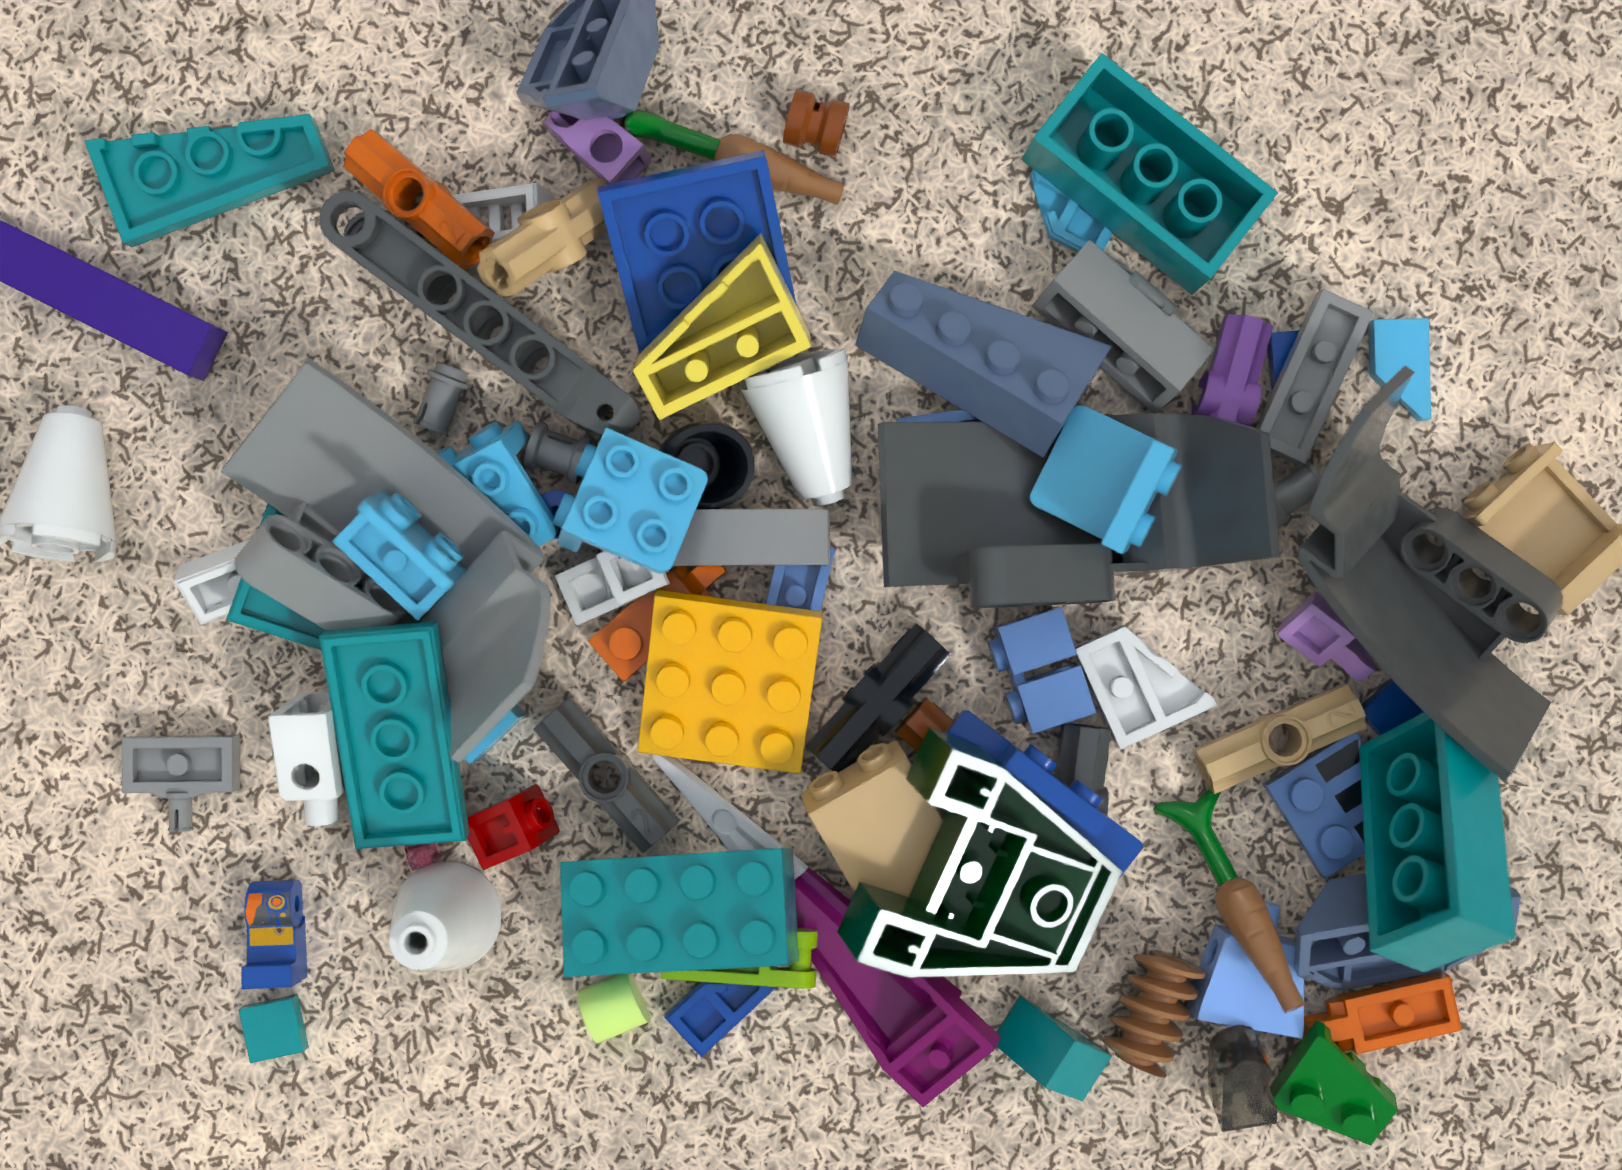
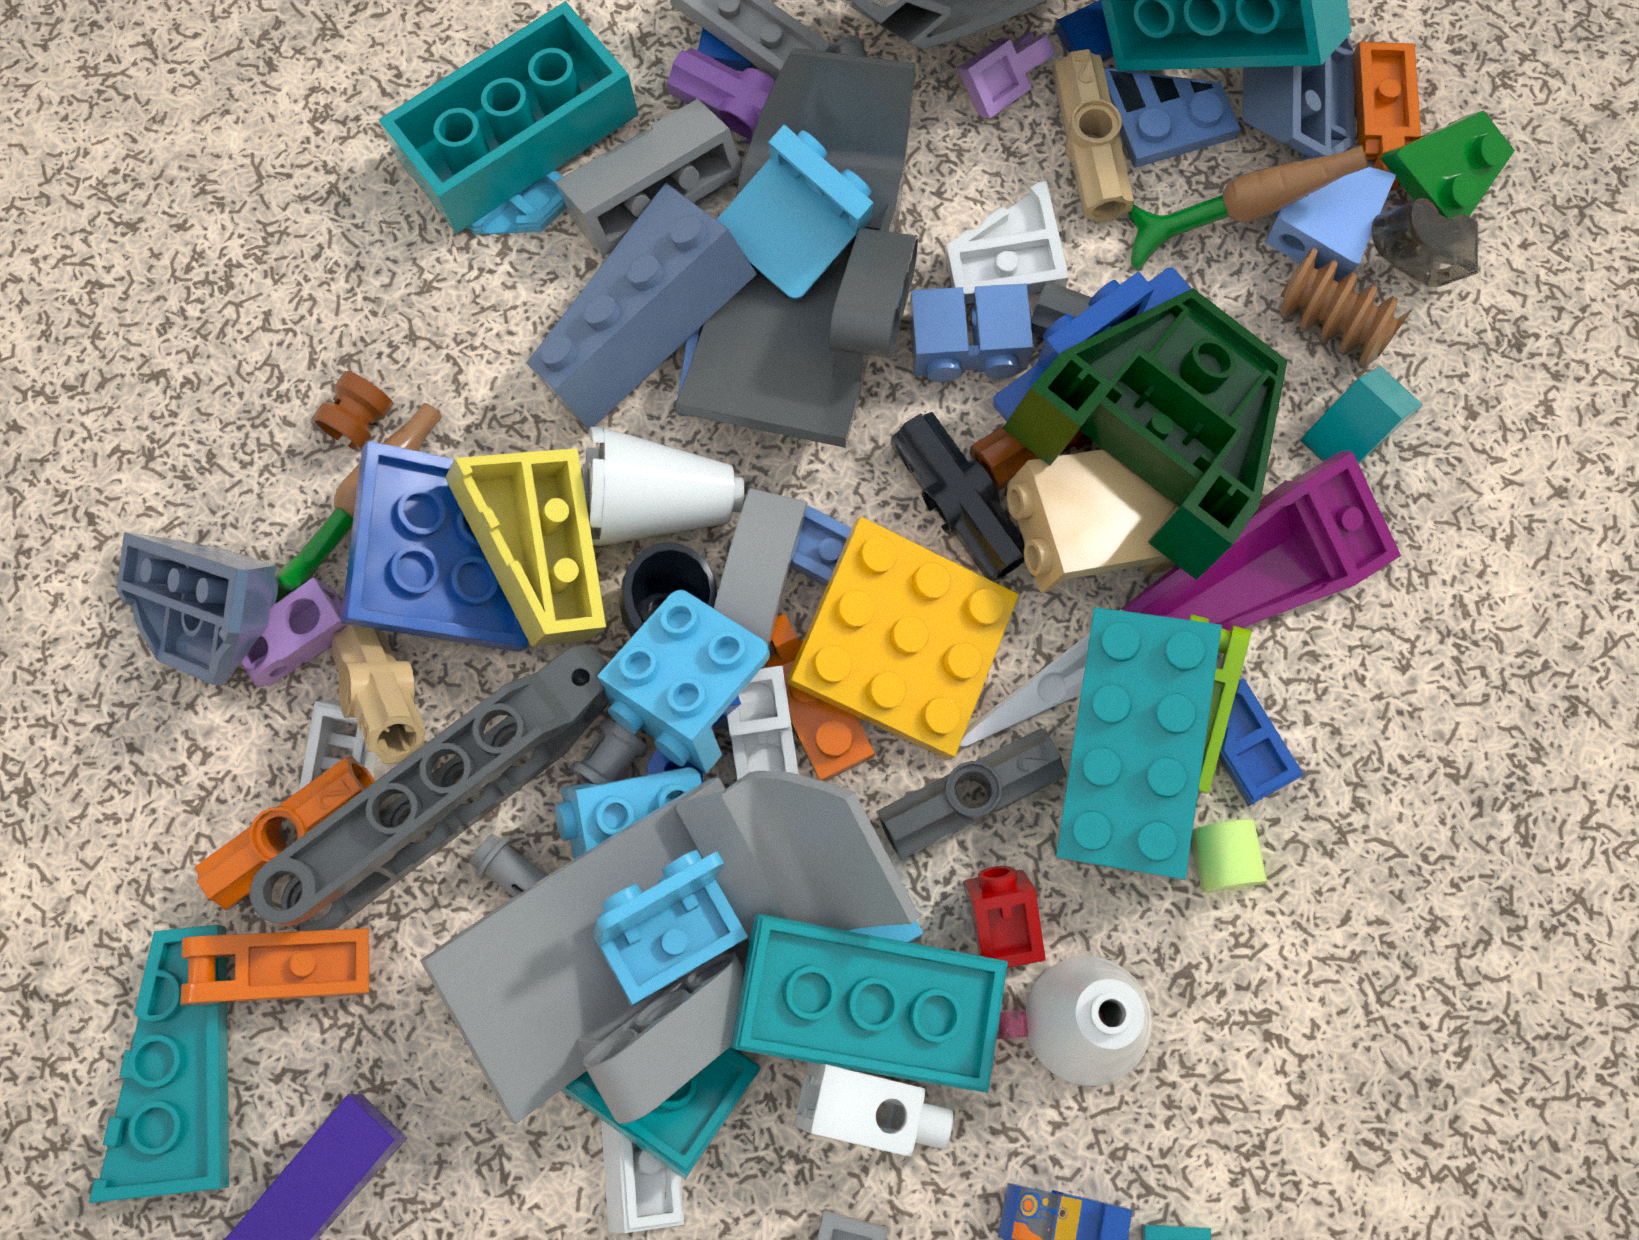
camera: 70 degrees left, 15 degrees down
(318, 266) = (277, 966): none -> orange plate

